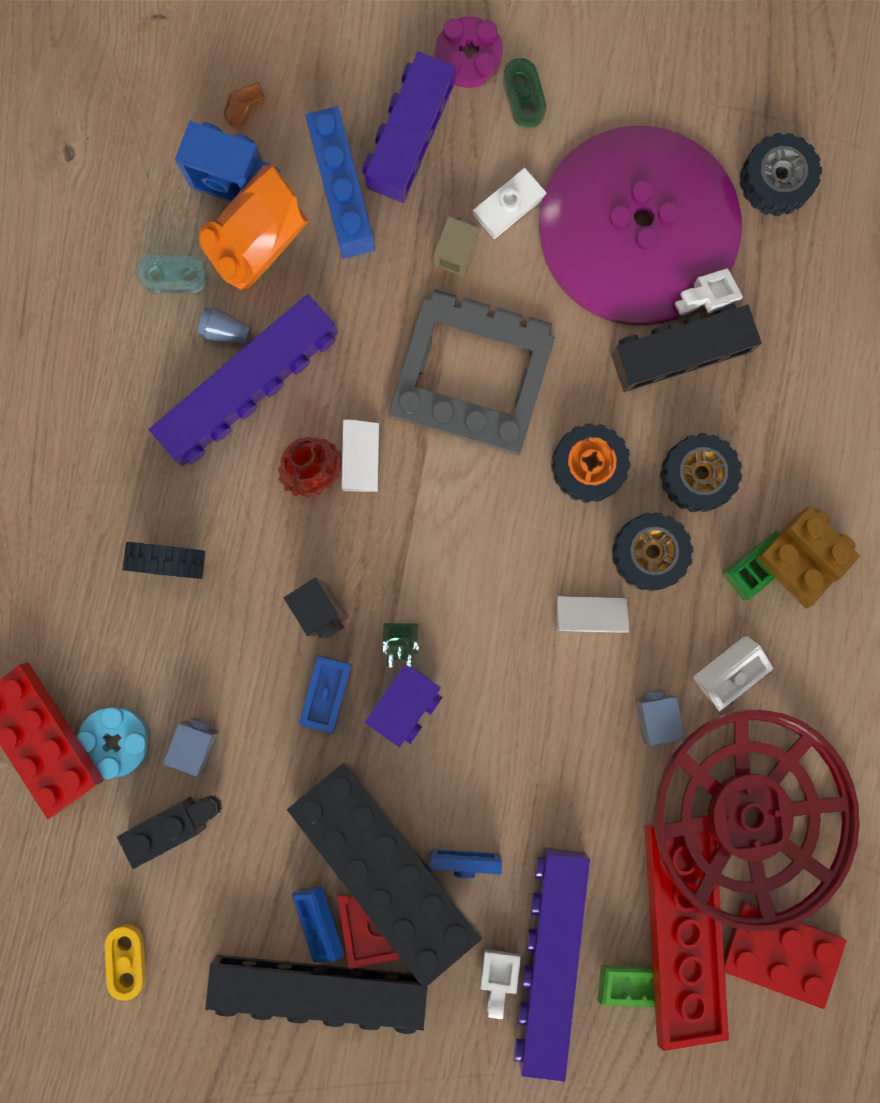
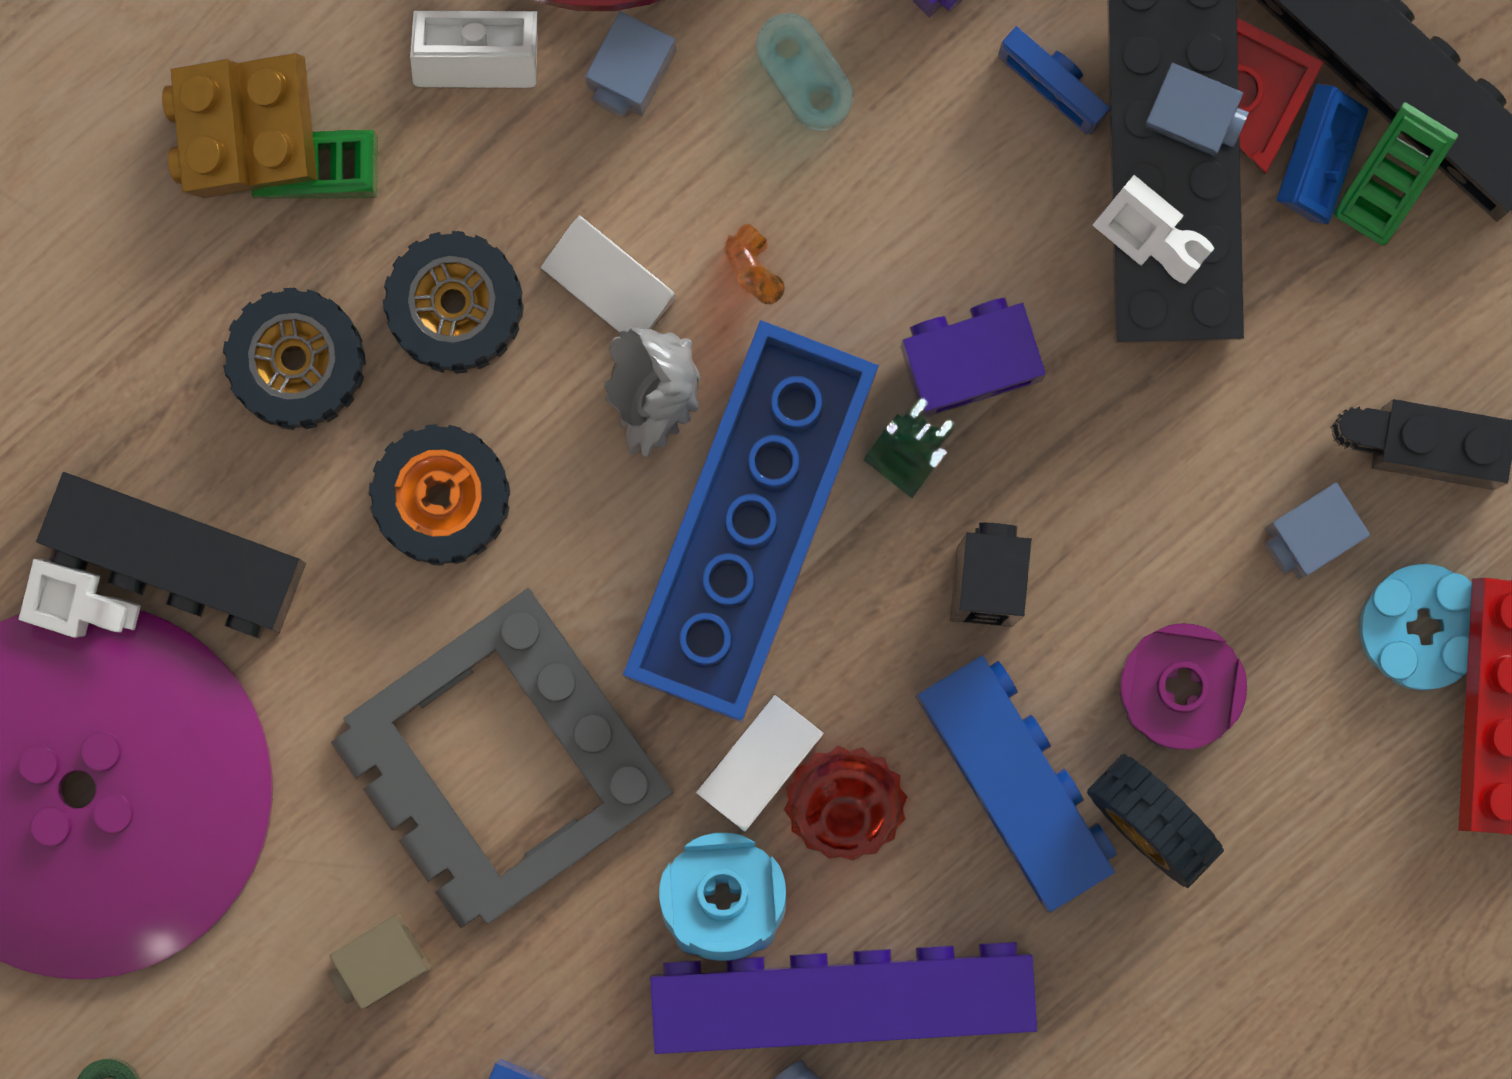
camera: 140 degrees left, 0 degrees up
(181, 624) = (1210, 664): none -> magenta plate
(240, 531) = (1016, 783): none -> blue brick
(275, 917) = (1373, 207): none -> green slope
(311, 384) = (727, 933): none -> medium azure plate
(325, 694) = (1071, 460): blue plate -> none
(368, 826) = (1145, 226): none -> white plate
(384, 900) = (1197, 111): none -> sand blue brick
(445, 554) = (750, 521): none -> blue brick
(509, 203) = (249, 971): white plate -> none
(530, 666) = (750, 273): none -> clear orange arm
(535, 582) = (652, 386): none -> light grey hair
(579, 776) = (806, 72): none -> clear light blue plate

